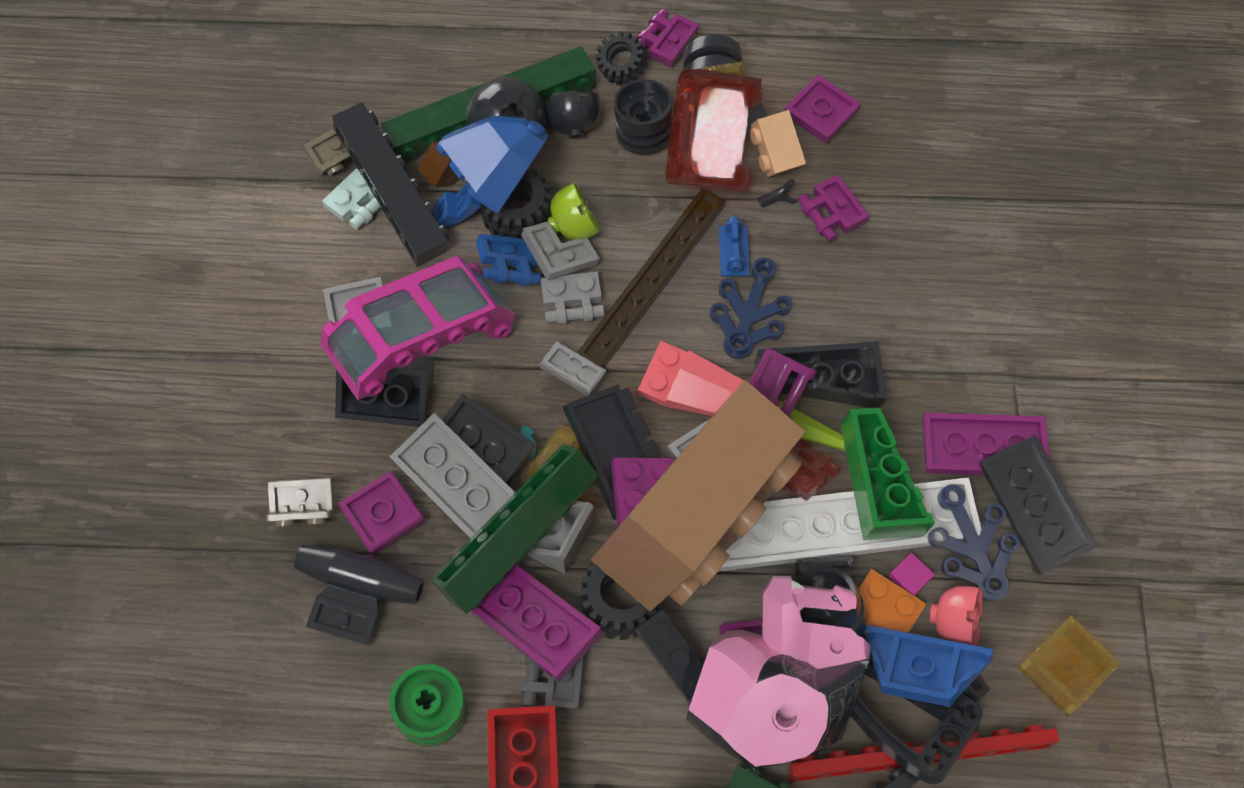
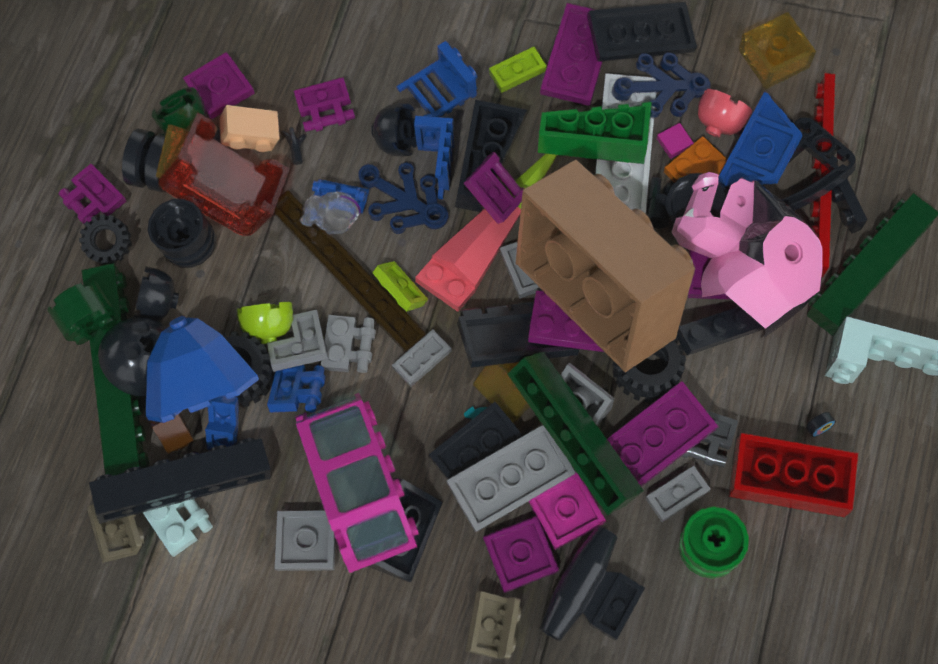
camera: 70 degrees left, 5 degrees up
(431, 544) = (567, 511): none -> dark pink plate
(480, 660) = (677, 494): none -> light grey plate
(530, 50) = (81, 312): none -> dark green brick
(646, 328) = (400, 286): none -> lime plate
(706, 240) = (331, 212): none -> clear hair
(779, 82) = (179, 109): none -> dark green cylinder
(822, 280) = (395, 130): none -> black cylinder
(824, 327) = (437, 135): none -> blue plate
(908, 324) = (453, 75): none -> blue plate
(942, 385) = (517, 69): none -> lime plate

